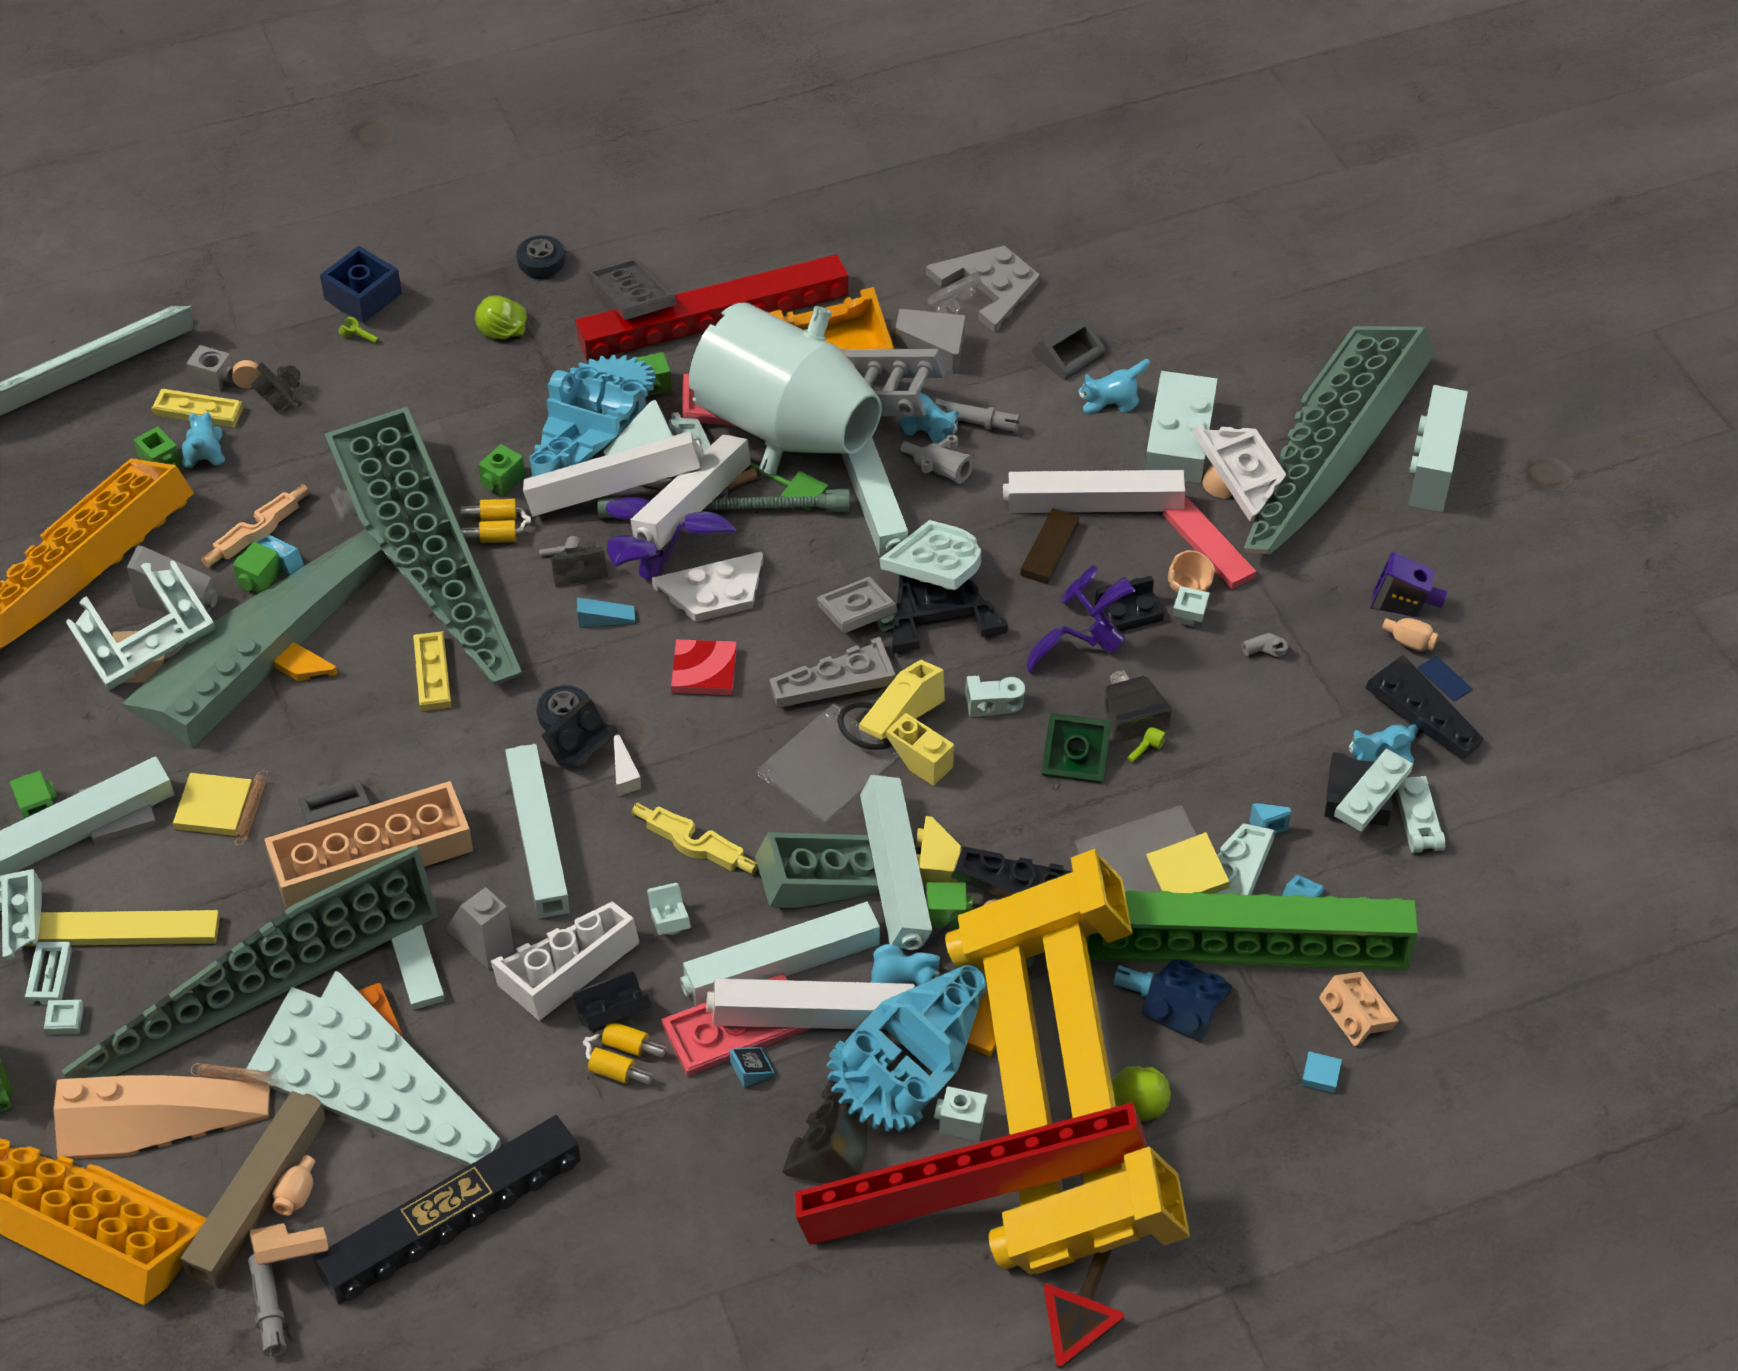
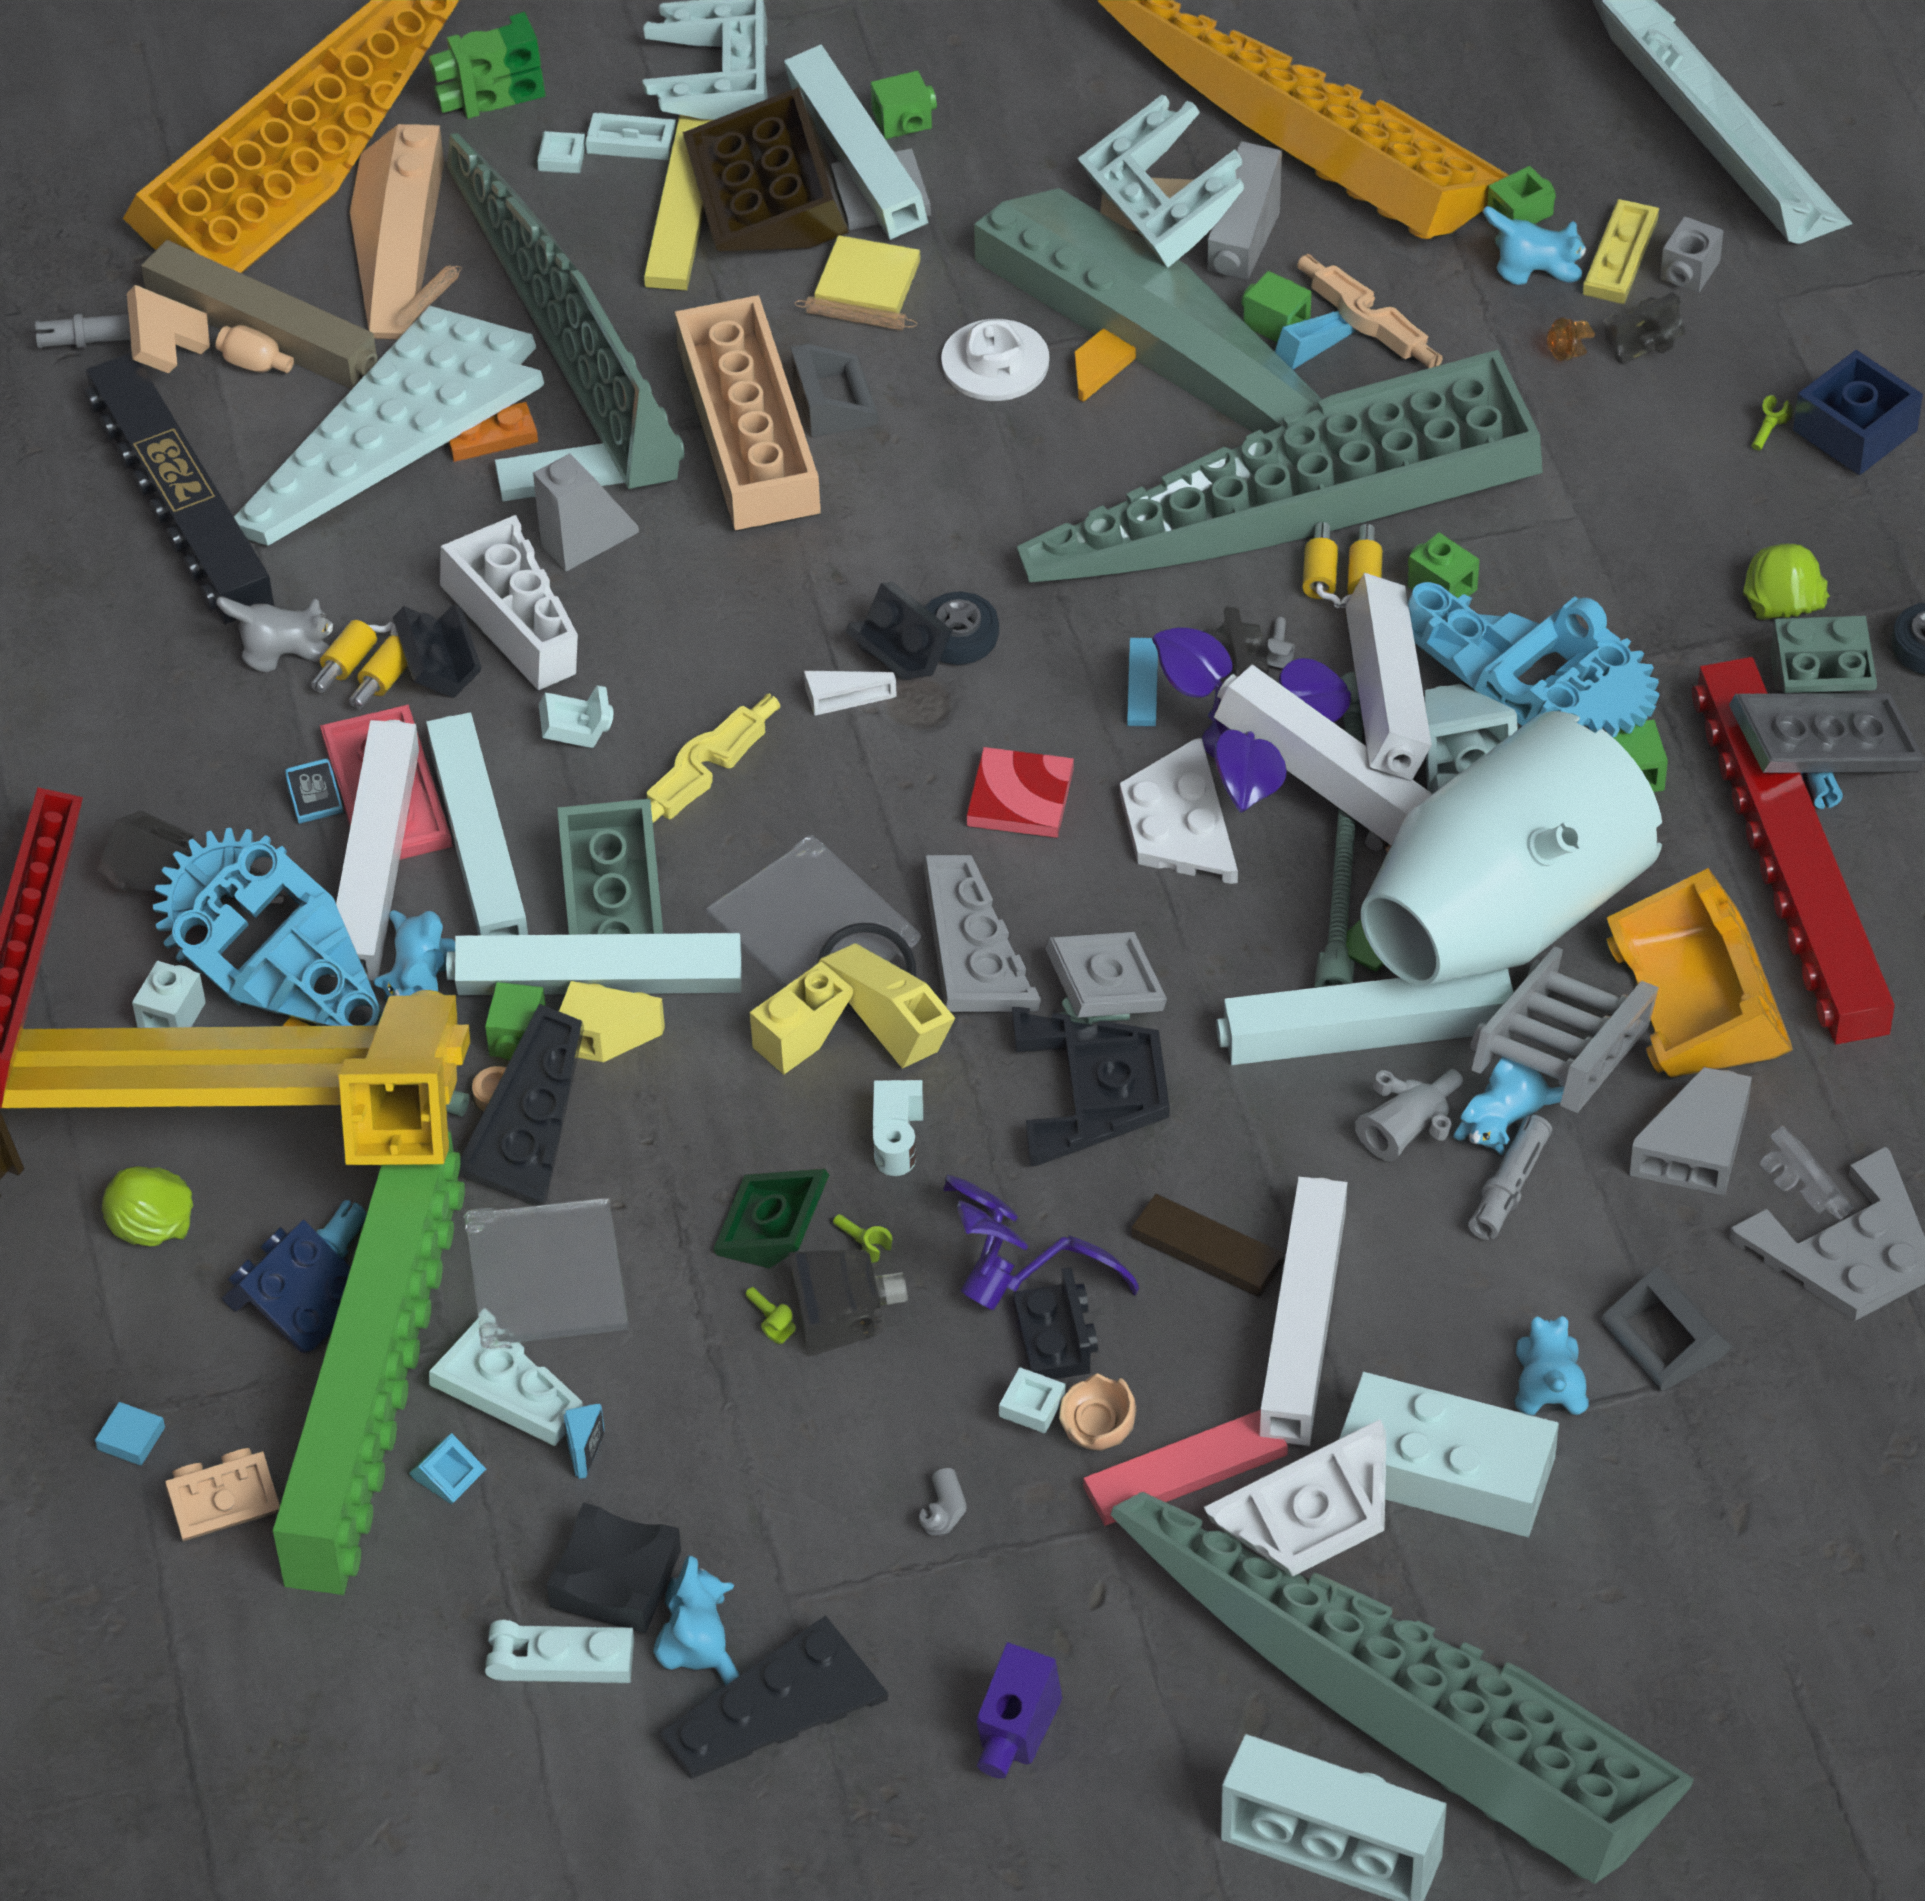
camera: 100 degrees right, 0 degrees up
(114, 865) = (766, 177): none -> dark brown slope
(245, 373) = (1680, 284): light nougat tile -> none
(287, 424) = (1566, 336): none -> clear orange plate
(296, 724) = (995, 359): none -> white piece
(432, 671) = (1060, 494): light yellow tile -> none
(537, 831) = (746, 587): light aqua brick -> none
(572, 294) = (1822, 655): none -> sand green slope
(598, 1108) = (278, 631): none -> light grey animal
(934, 938) = (460, 1000): dark blue sticker -> none
(935, 555) = (1176, 1070): light aqua plate -> none
(1081, 702) = (873, 1235): none -> lime hand
(1189, 867) = (492, 1300): light yellow tile -> none
(1373, 790) = (585, 1561): light aqua plate -> none
(1412, 633) = (926, 1713): light nougat plant -> none
(1445, 678) = (841, 1758): dark blue sticker -> none

